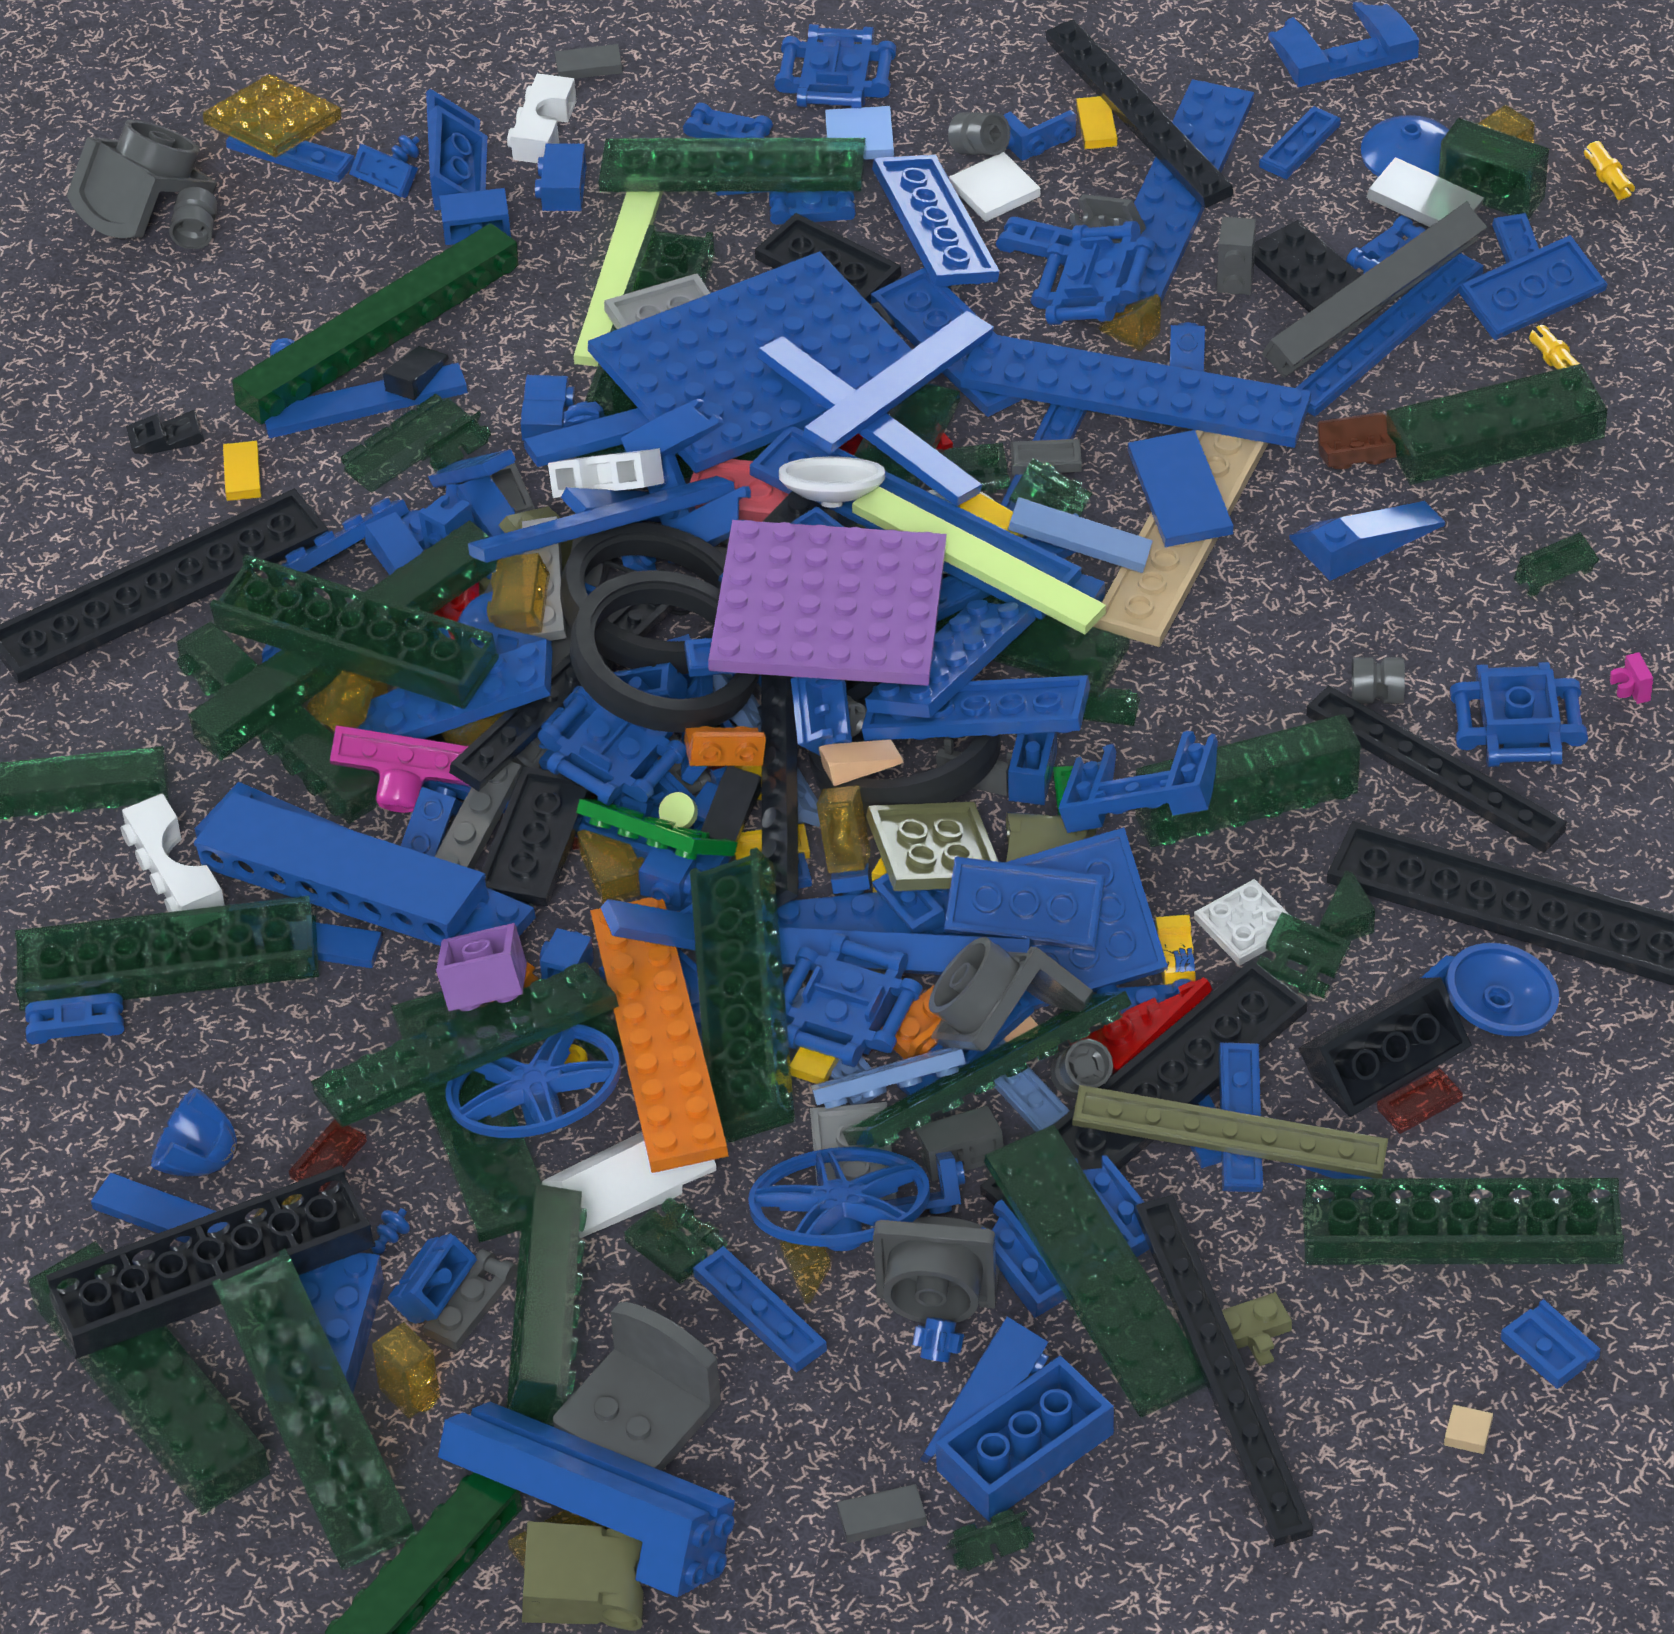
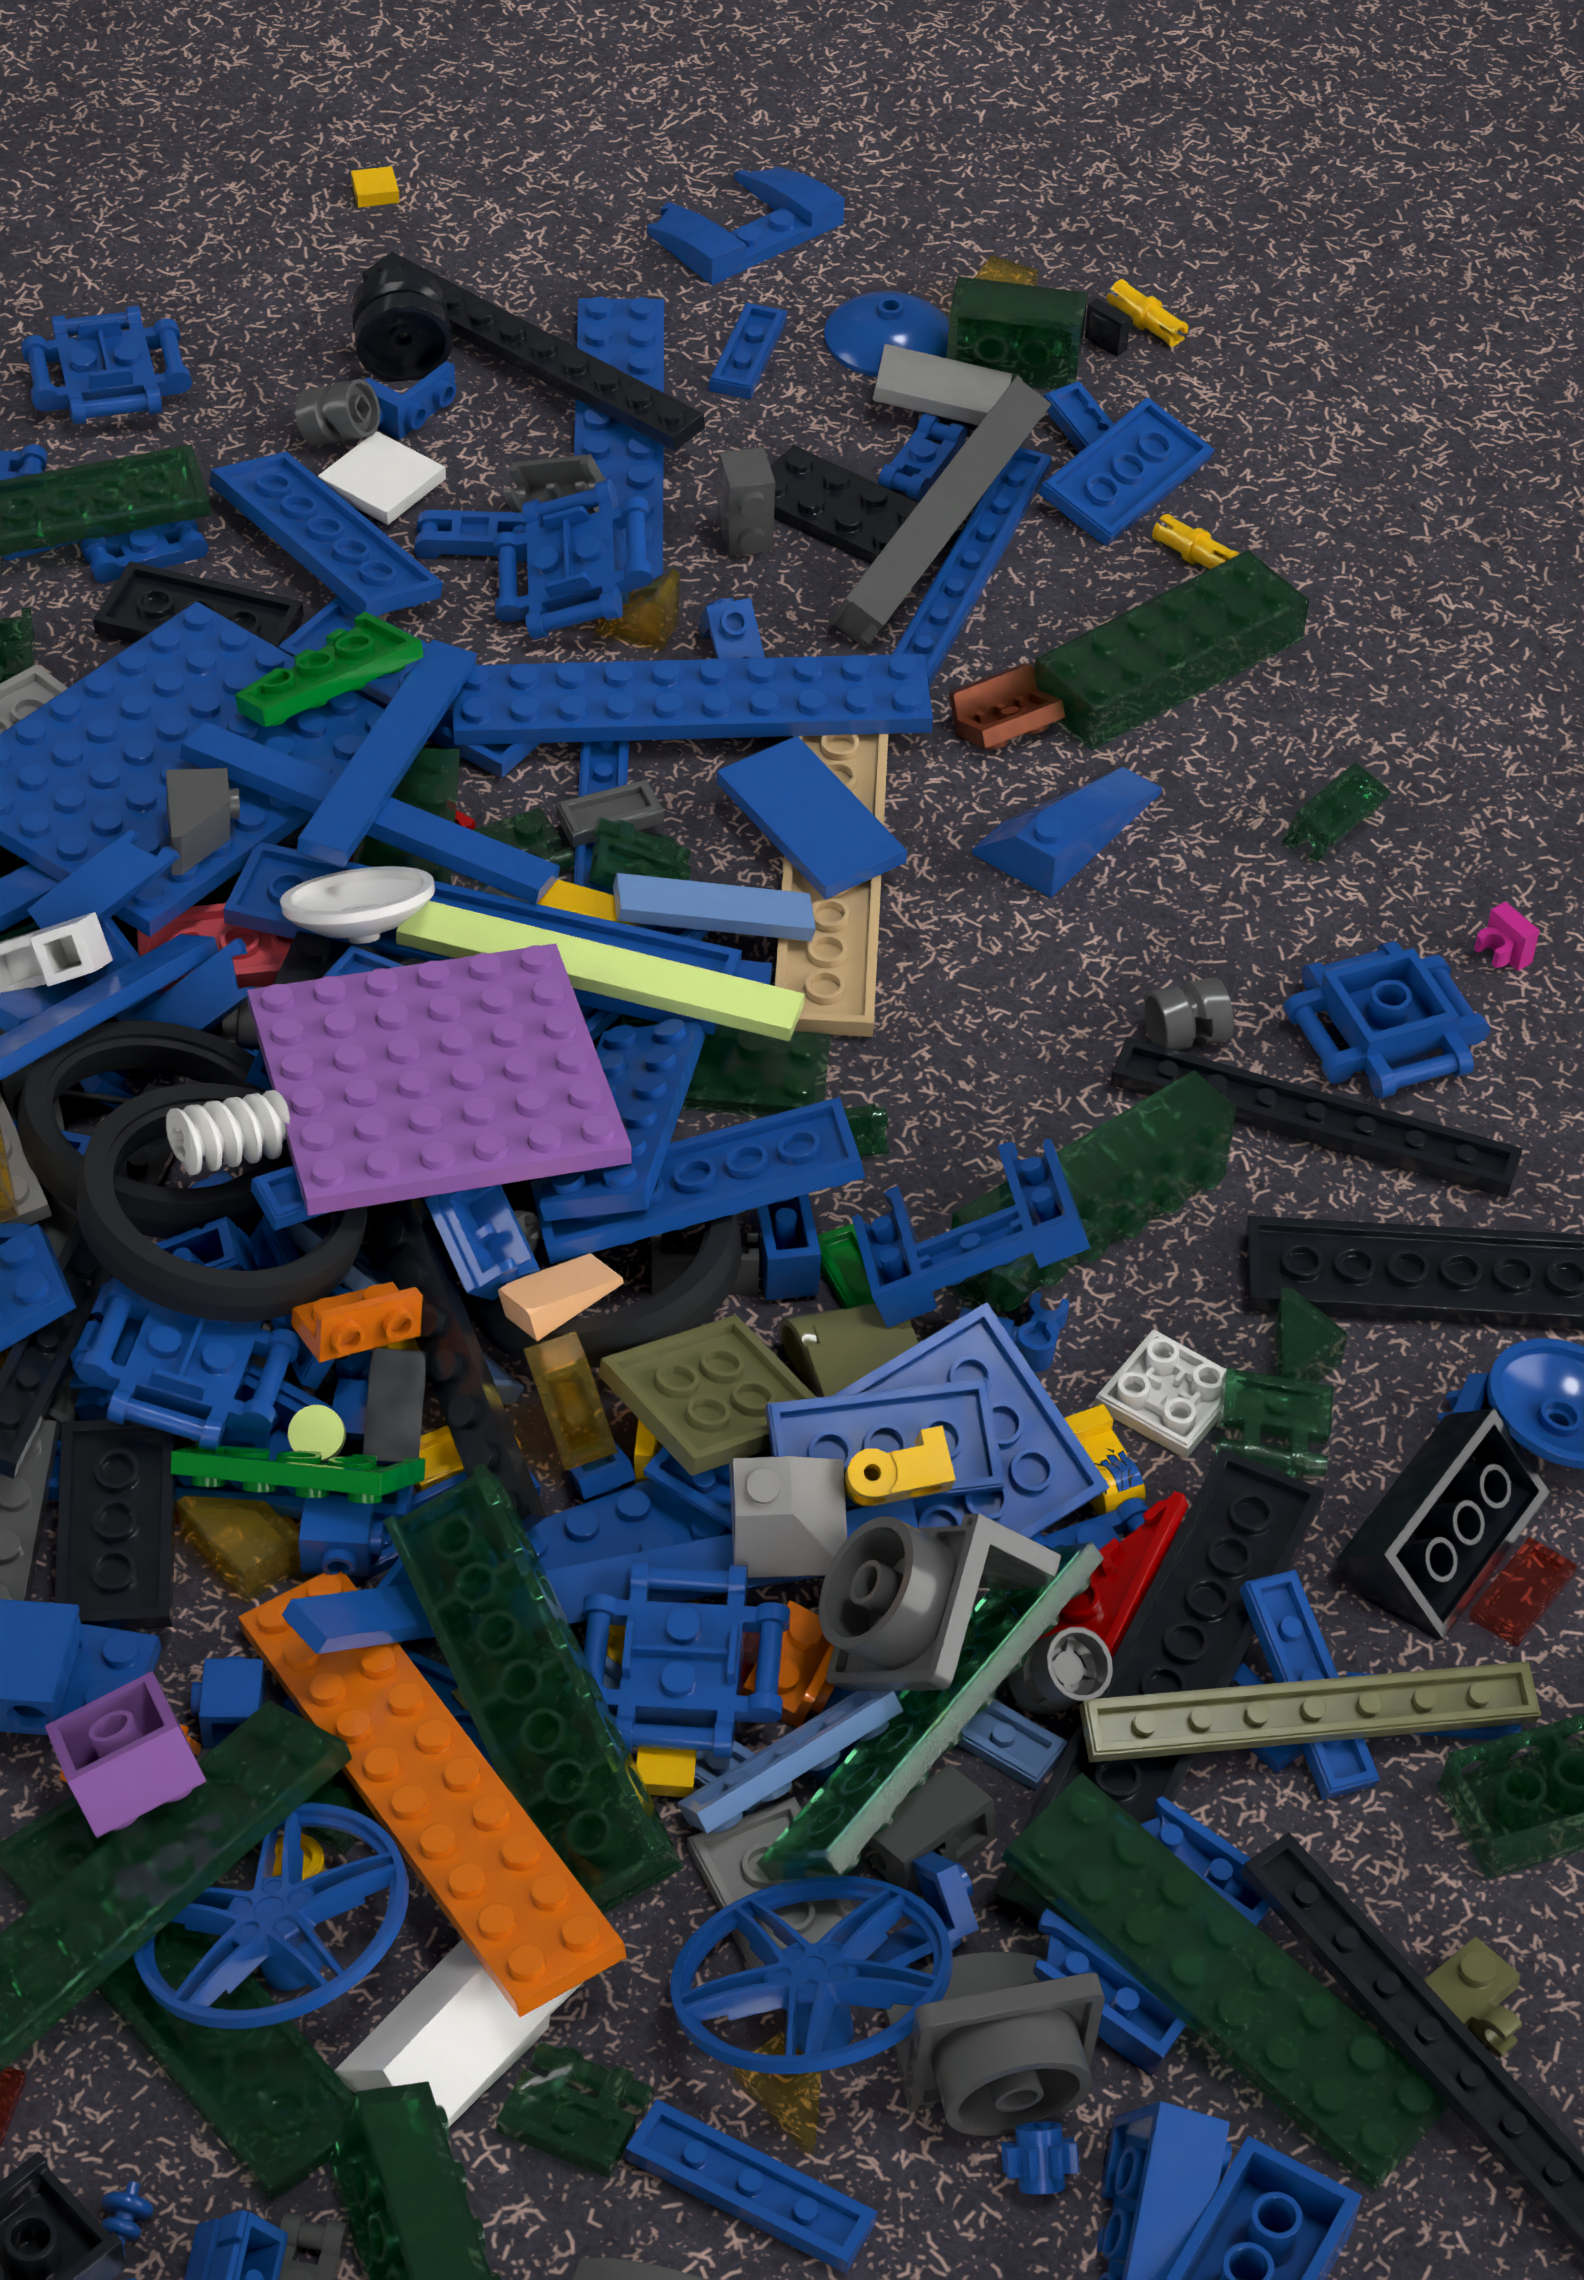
camera: 25 degrees left, 0 degrees up
(679, 606) = (228, 1131): none -> white piece
(750, 398) = (198, 813): none -> dark grey slope
(864, 122) = (172, 429): light blue tile -> none
(877, 319) = (339, 667): none -> green wing
(939, 924) = (787, 1514): none -> light grey slope
(1023, 920) = (902, 1474): none -> yellow leg
(1049, 76) = (401, 325): none -> black wheel
(1096, 123) = (480, 376): yellow tile -> none
(1168, 867) = (1038, 1334): none -> blue bar
(1571, 175) = (1107, 327): none -> black tile

